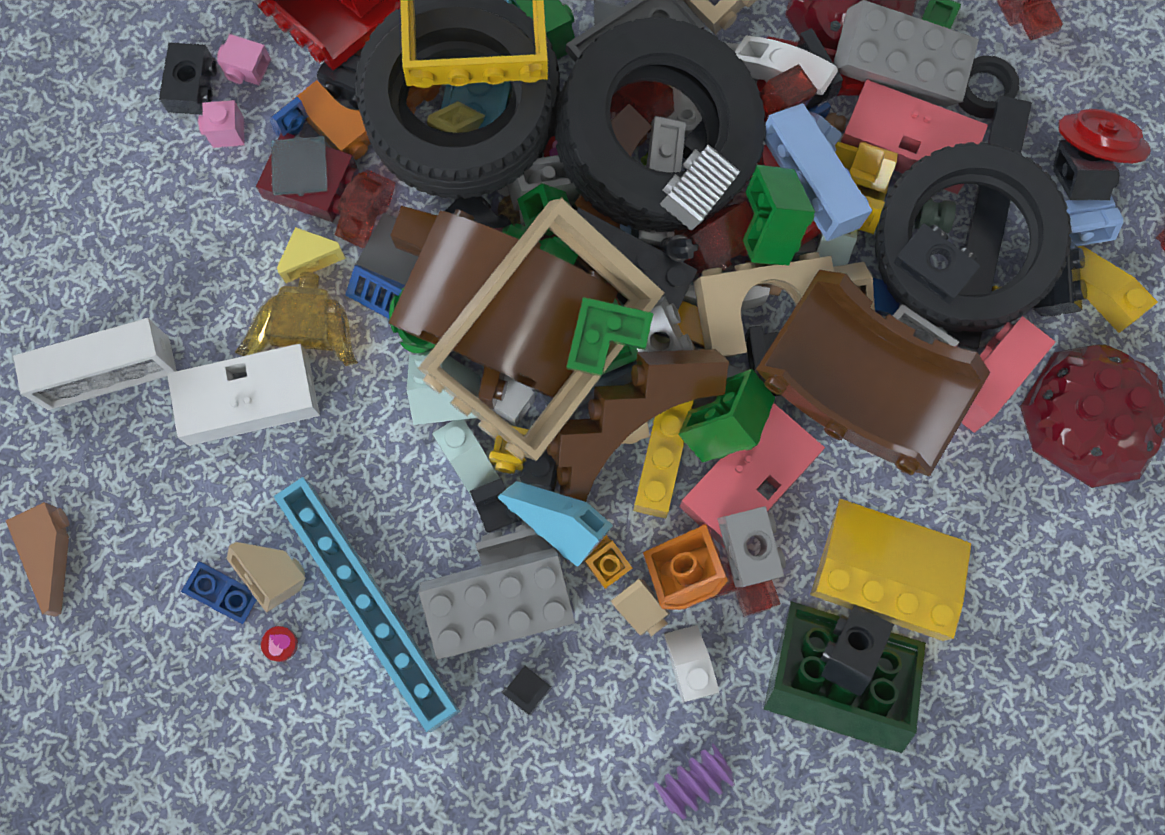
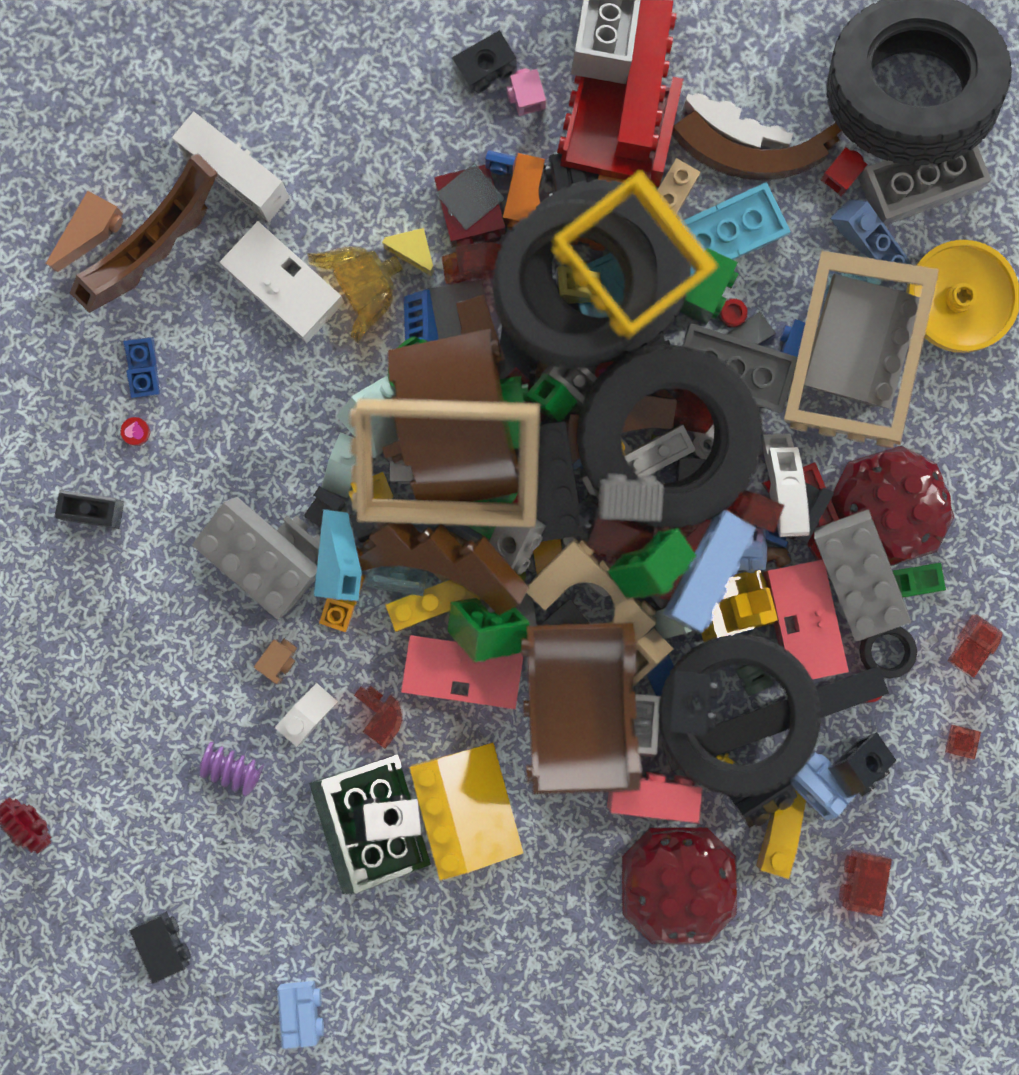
camera: 50 degrees right, 10 degrees up
(106, 493) = (151, 242): none -> reddish brown arch
(222, 123) = (466, 115): bright pink brick -> none
(267, 573) = (173, 390): tan slope -> none
(322, 744) = (89, 509): none -> black brick
(367, 605) = (197, 471): medium azure brick -> none
(527, 690) = (214, 617): black panel -> none
(583, 19) = (733, 313): none -> red tile
(601, 324) = (479, 502): green plate -> none
(614, 655) = (276, 660): none -> medium nougat brick
(618, 472) = (398, 579): none -> clear light blue tile
(641, 608) = (319, 657): tan slope -> none
(686, 569) = (364, 669): orange slope -> none
(735, 533) = (412, 687): light grey brick -> none
(1105, 136) = (900, 764): red piece -> none
(1112, 79) = (963, 741): none -> clear red plate

